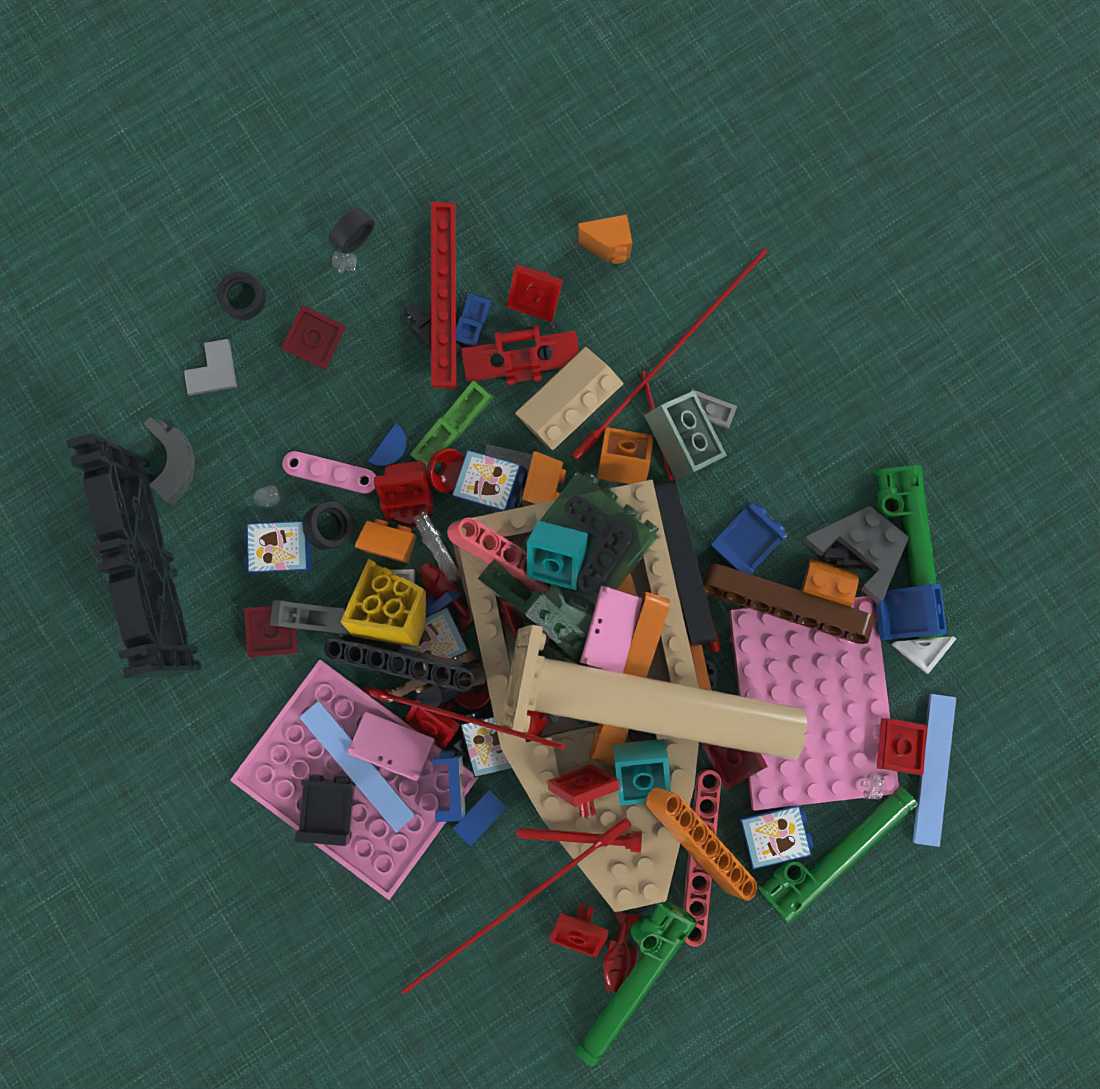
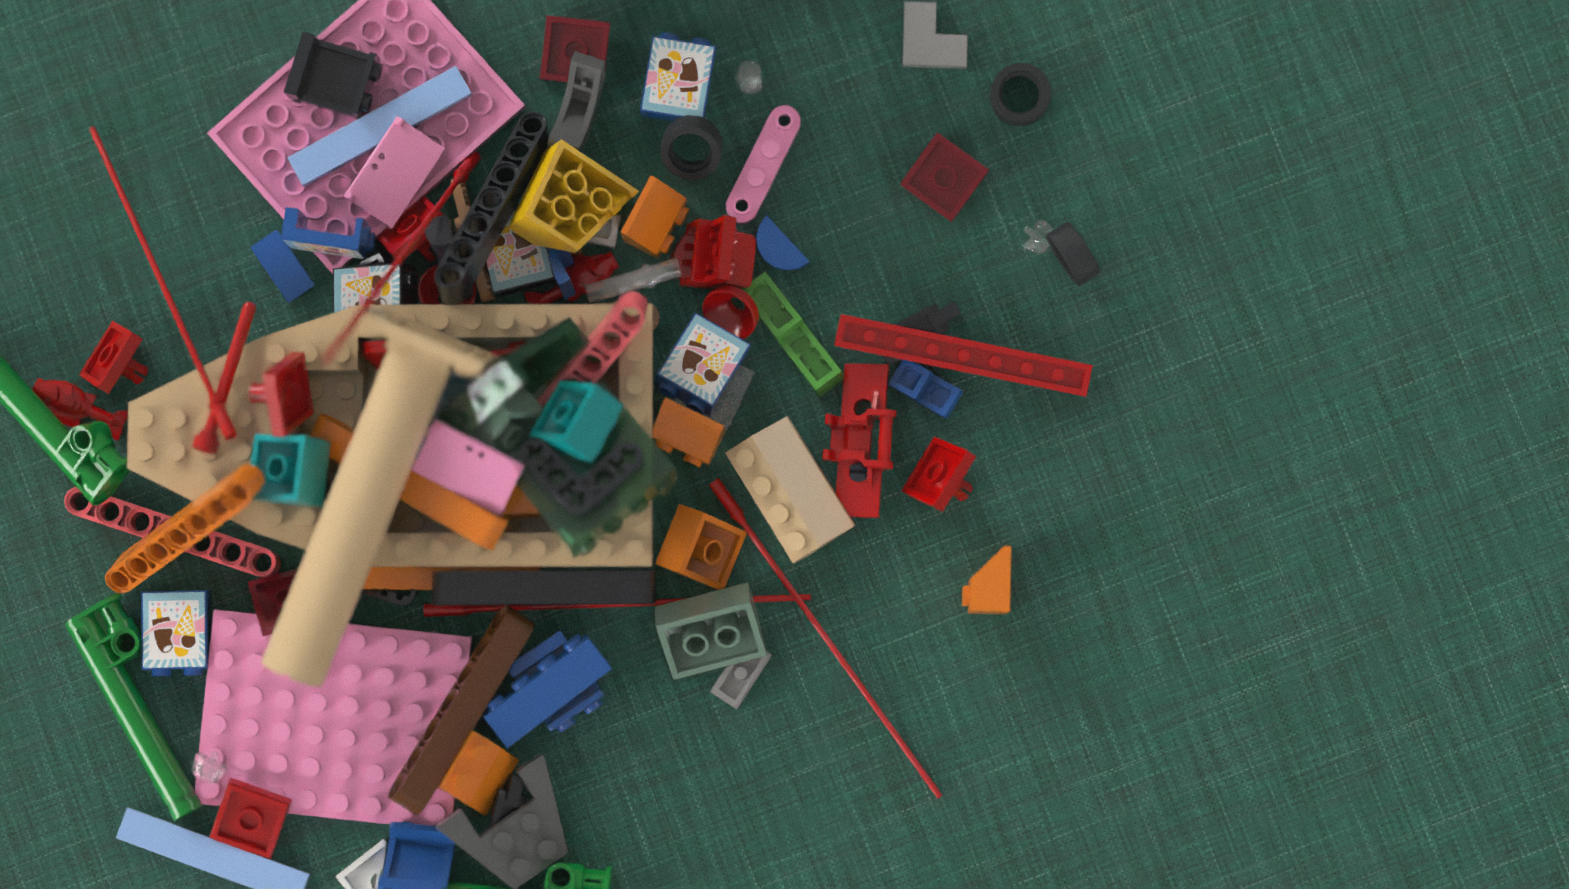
camera: 105 degrees right, 0 degrees up
(757, 544) = (546, 690): none -> blue brick

